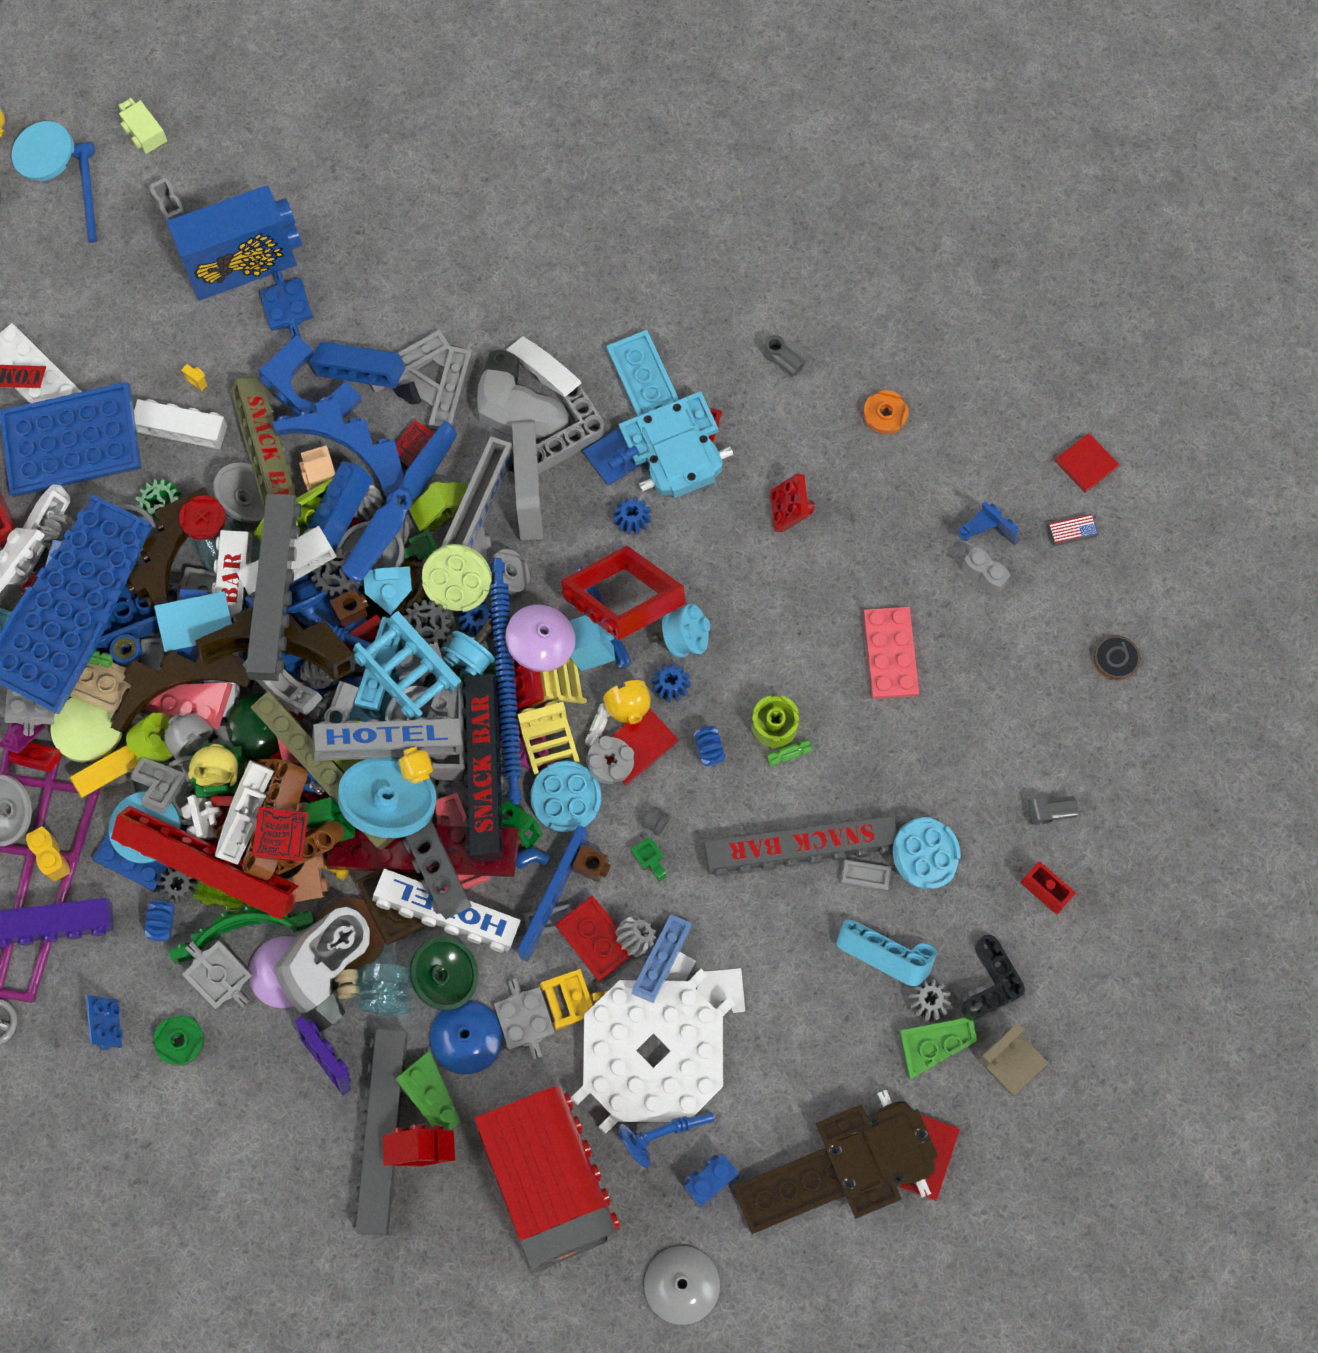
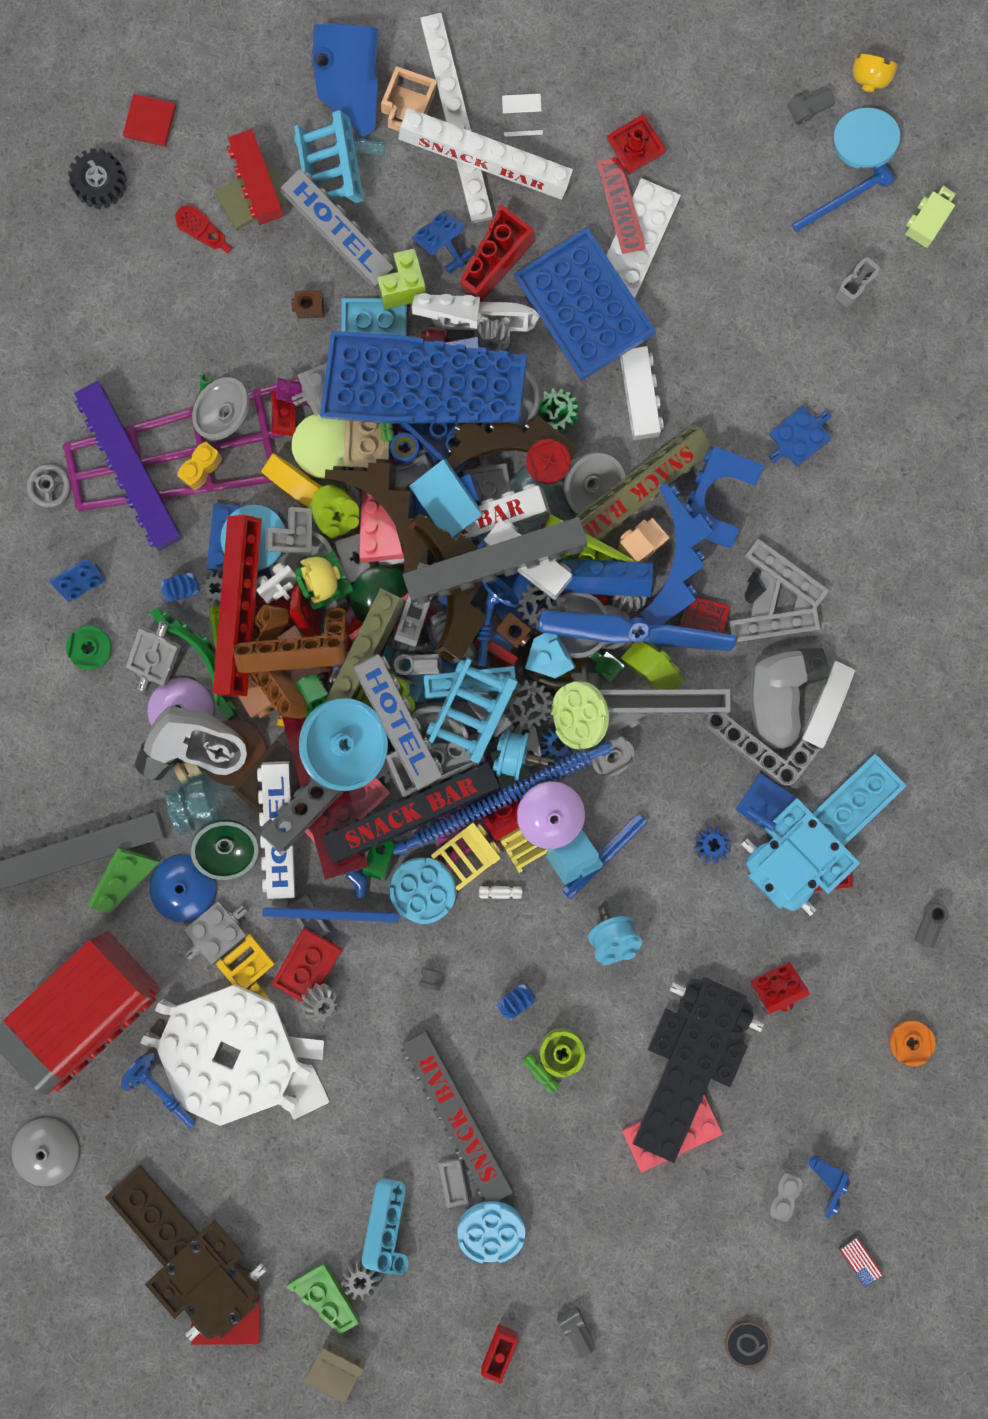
camera: 70 degrees right, 15 degrees up
(186, 733) = (343, 537): light grey cylinder -> none
(195, 377) = (693, 386): yellow plate -> none
(236, 241) = (836, 365): blue brick -> none
(242, 813) = (283, 623): white slope -> none
(280, 834) = (272, 667): red tile -> none
(323, 1054) = (113, 779): dark purple plate -> none
(357, 364) = (761, 531): blue brick -> none
(415, 765) = (380, 758): yellow head -> none
(418, 1146) = (67, 891): red piece -> none
(527, 481) = (707, 736): light grey beam -> none
(584, 856) = (377, 929): reddish brown brick -> none
(608, 747) = (477, 927): light grey plate -> none
(628, 702) = (526, 915): yellow cylinder -> none
(648, 856) = (397, 985): green plate -> none
(649, 741) = (495, 933): red tile -> none
(661, 958) = (306, 1034): medium blue plate -> none
(666, 689) = (572, 942): blue gear -> none
(669, 591) = (667, 856): red window -> none
(711, 1180) = (135, 1146): blue brick -> none
(822, 597) = (699, 1047): none -> black piece
(1000, 988) = (396, 1339): black beam -> none
(1087, 463) = (935, 1252): red tile -> none

